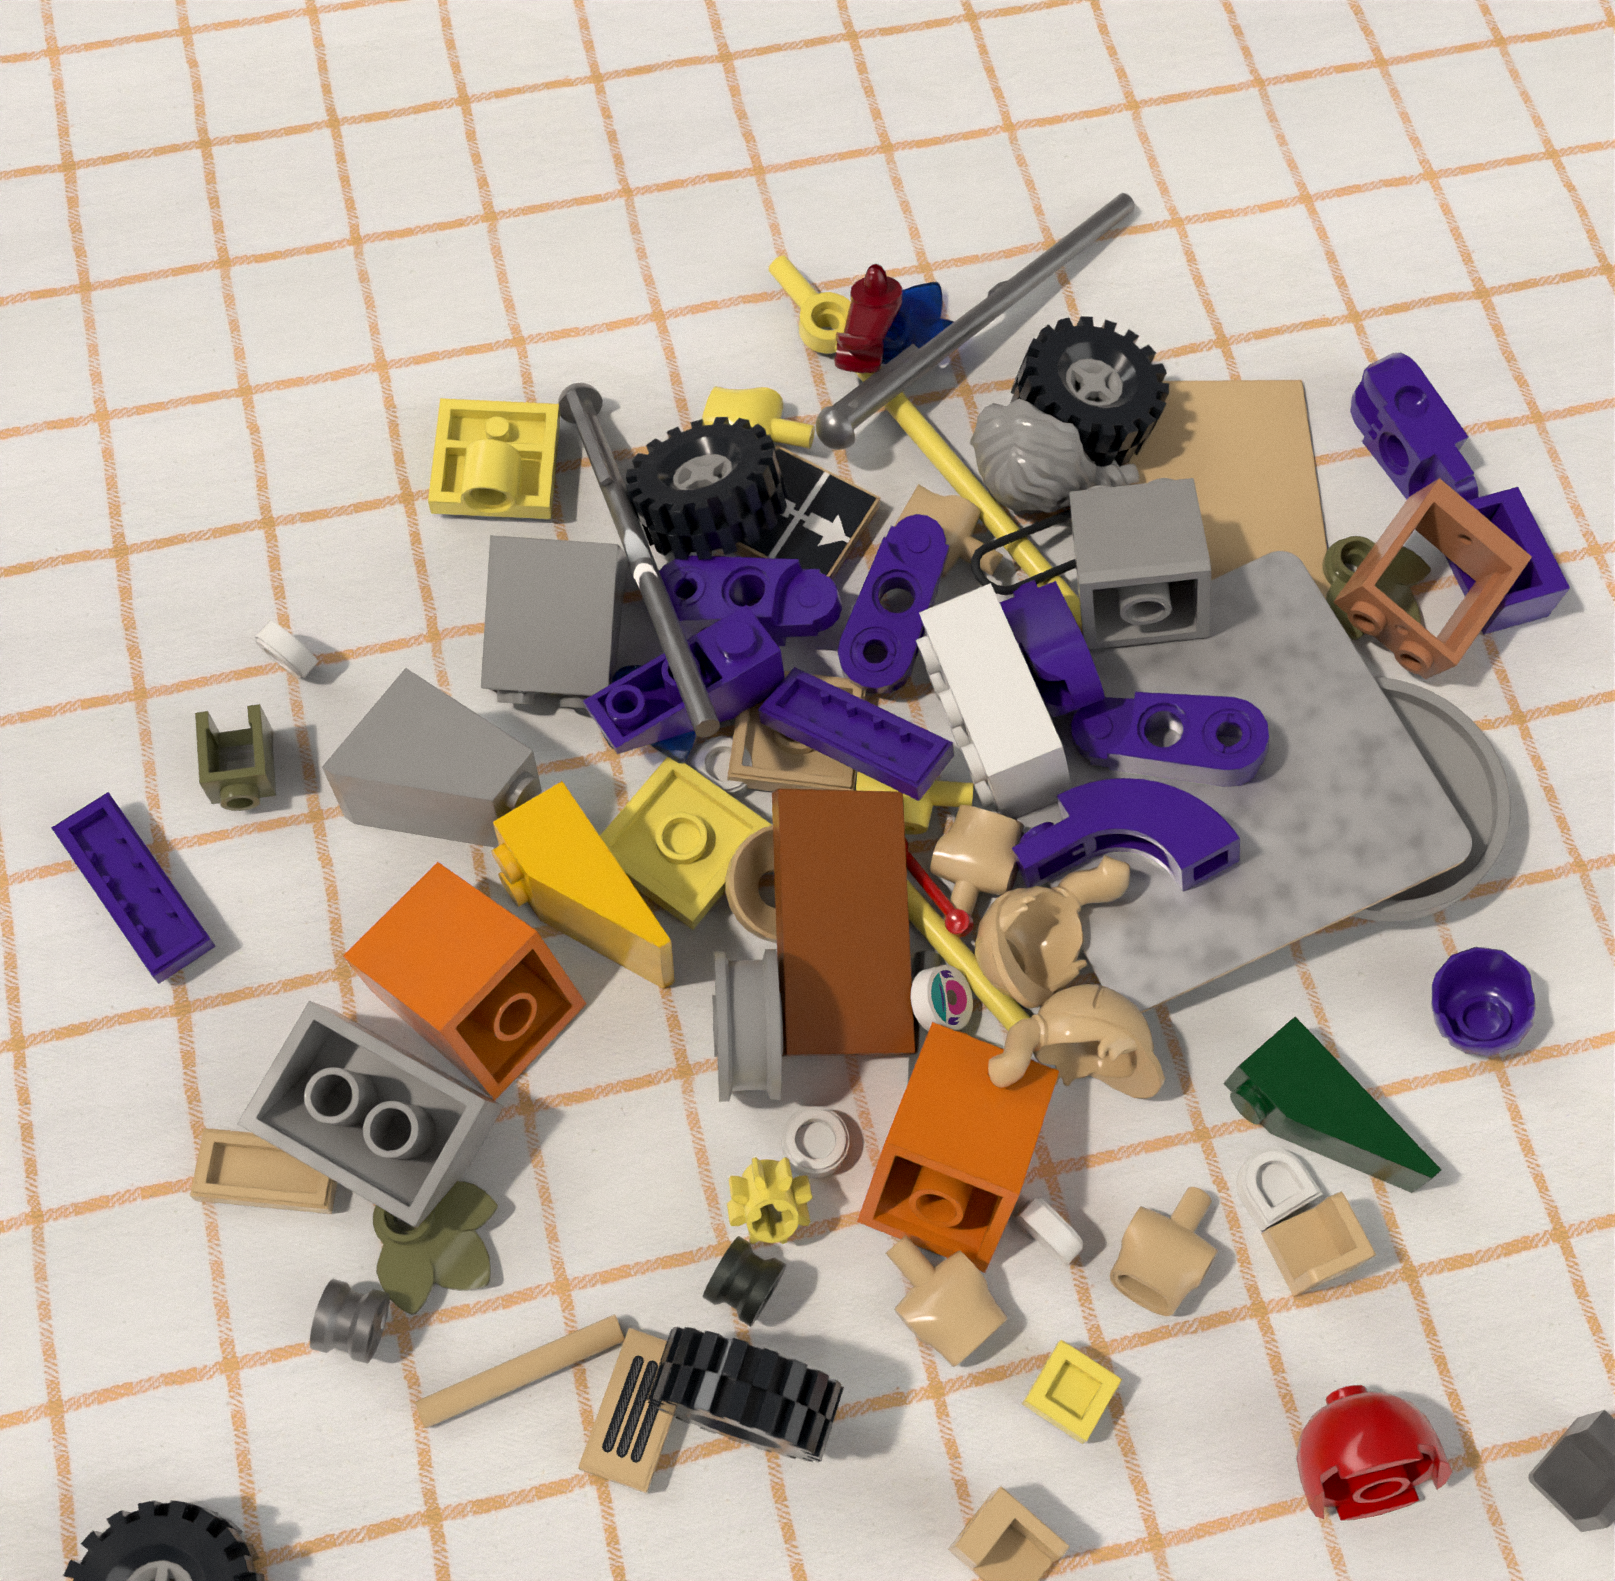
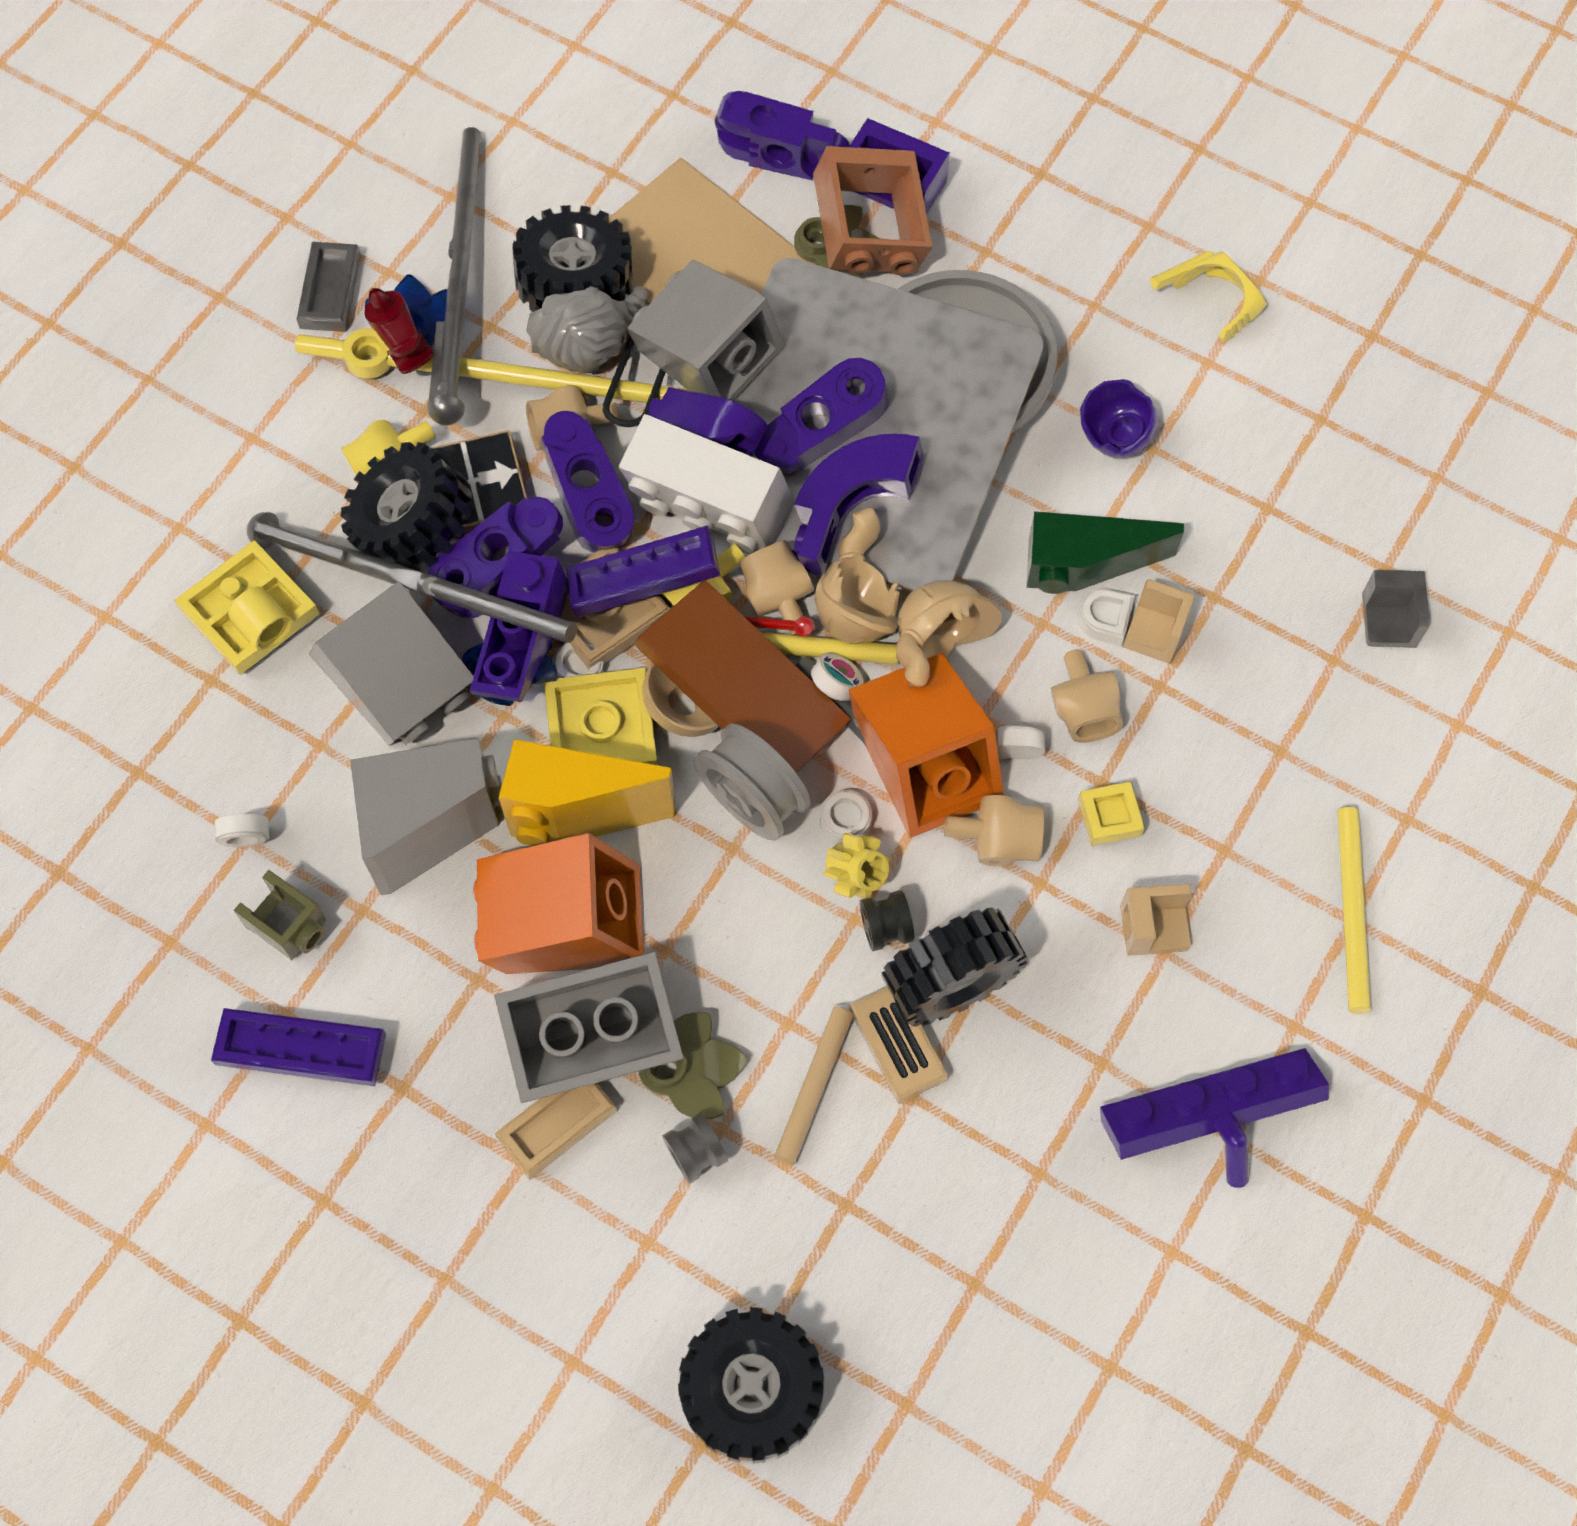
camera: 40 degrees left, 0 degrees up
(858, 236) = (328, 286): none -> flat silver tile
(1368, 1454) = (1284, 702): red cylinder -> none

